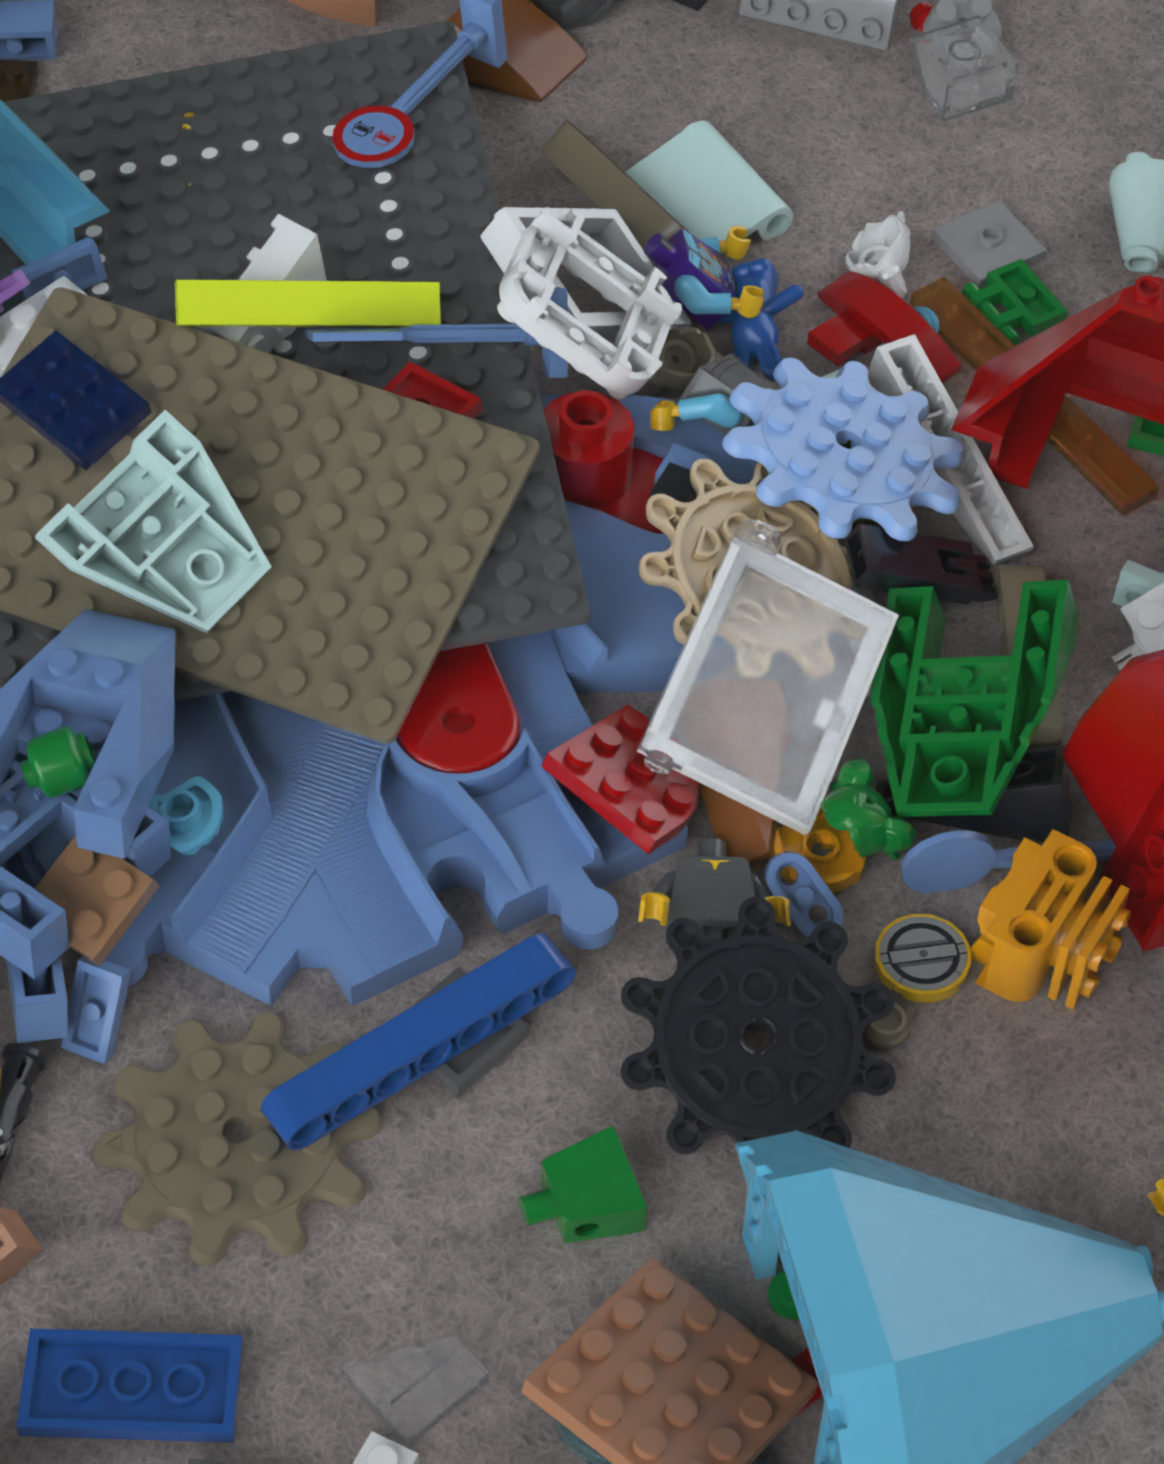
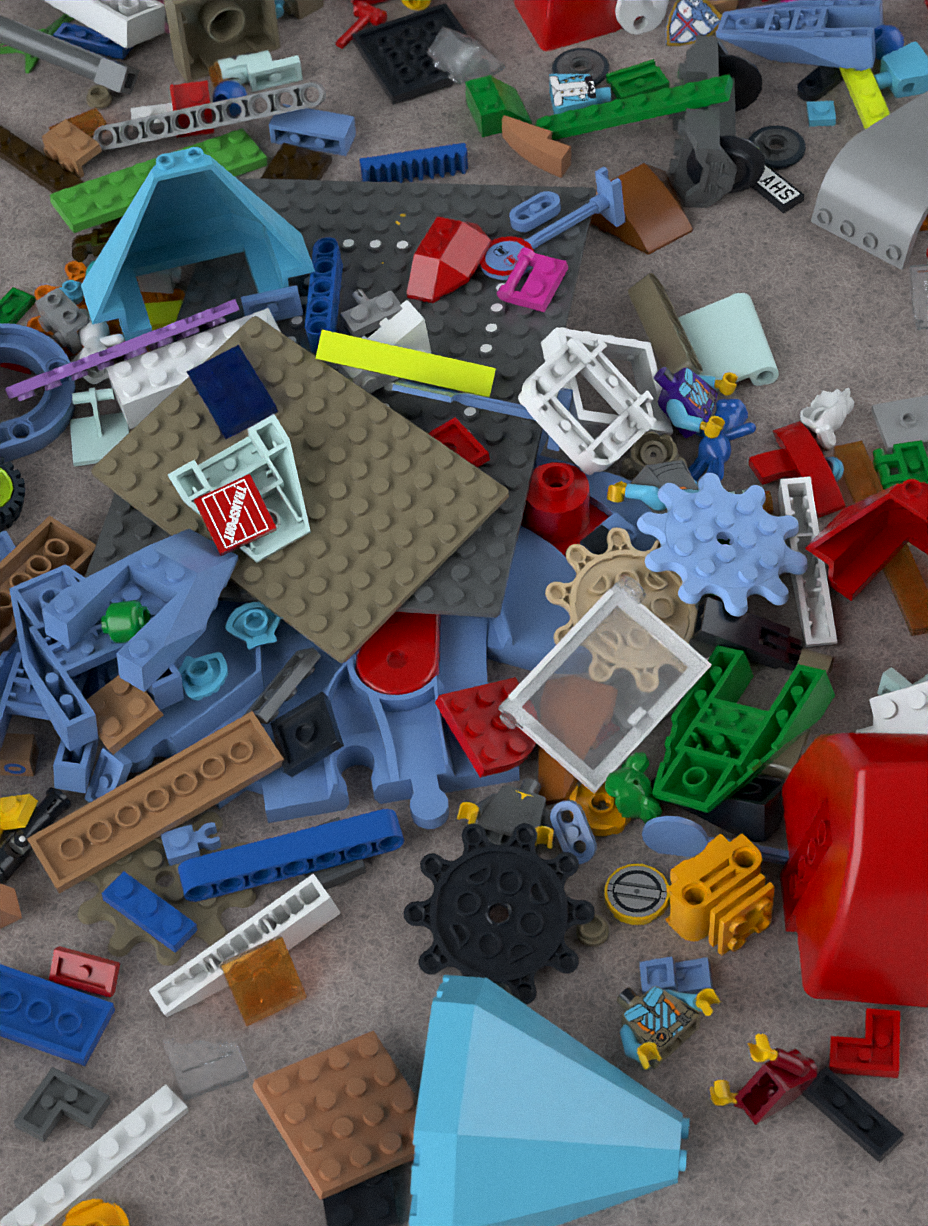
camera: 25 degrees right, 0 degrees up
(131, 241) = (323, 290): none -> blue beam
(157, 569) = (235, 515): none -> red tile
(166, 47) = (415, 164): none -> blue gear
(175, 1301) = (84, 971): none -> red plate
(183, 1022) = (155, 802): none -> medium nougat plate
(213, 252) = (369, 312): none -> light grey plate
(230, 724) = (253, 624): none -> medium azure animal
(240, 1183) = (149, 911): none -> blue plate
(253, 1070) = (184, 843): none -> medium blue plate
(291, 156) = (446, 258): none -> wedge
(305, 803) = (284, 685): none -> dark grey plate
(376, 860) = (306, 734): none -> black plate
(387, 66) = (535, 211): none -> medium blue plate
(409, 1192) = (290, 916): none -> white slope
(441, 161) = (540, 284): none -> dark pink plate
(456, 1233) = (263, 980): none -> clear orange plate
(588, 1191) = (356, 978): green torso -> none
(1021, 1060) = (682, 976): none -> medium blue slope
(1042, 1122) = (660, 1021): none -> torso

